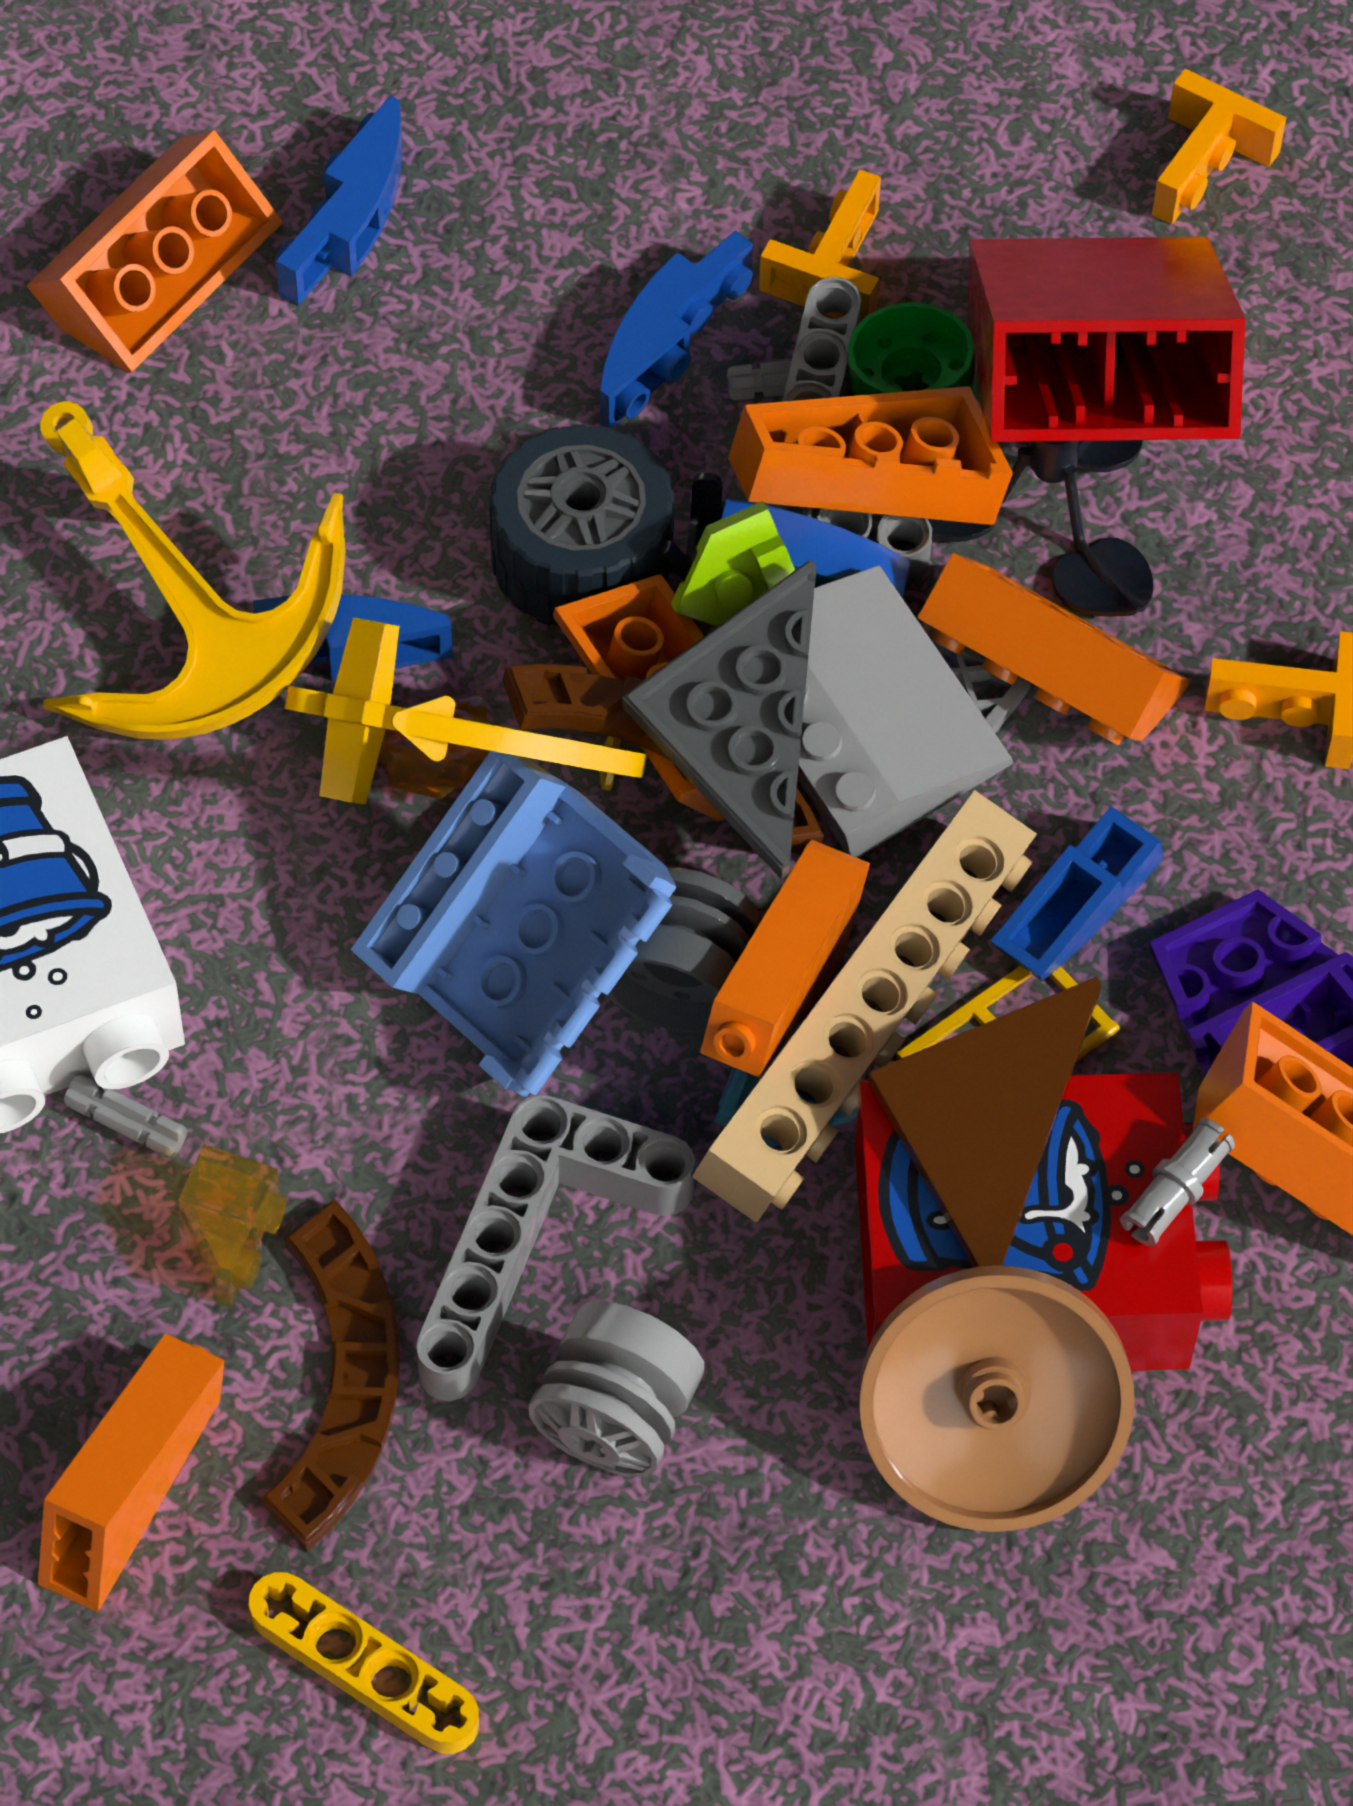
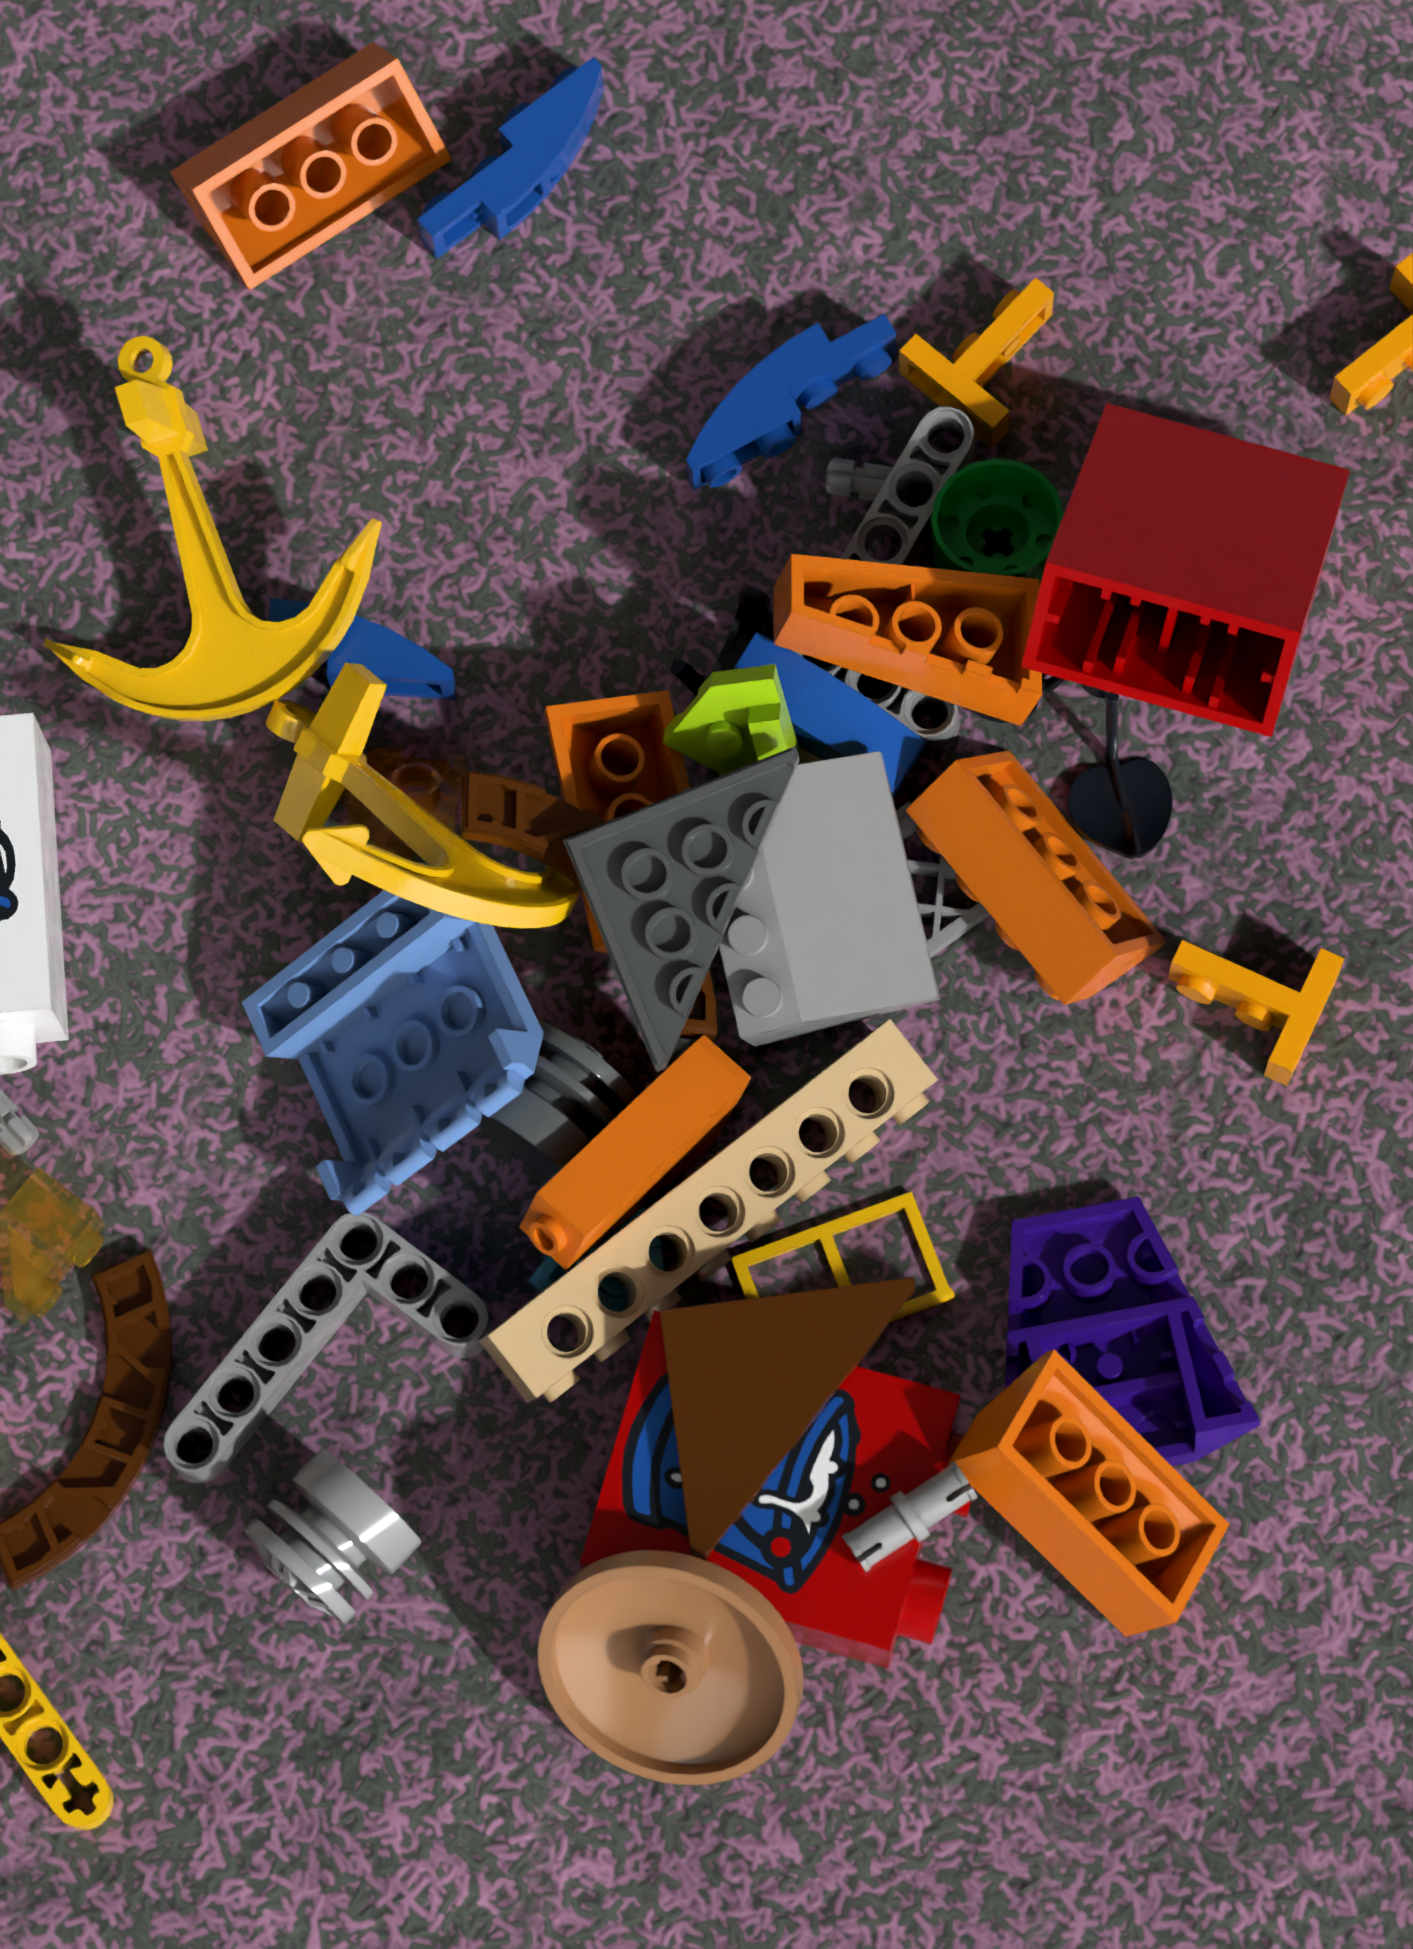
camera: 25 degrees right, 15 degrees up
(577, 517) = (615, 602): black wheel -> none
(1079, 894) = (960, 1150): blue slope -> none

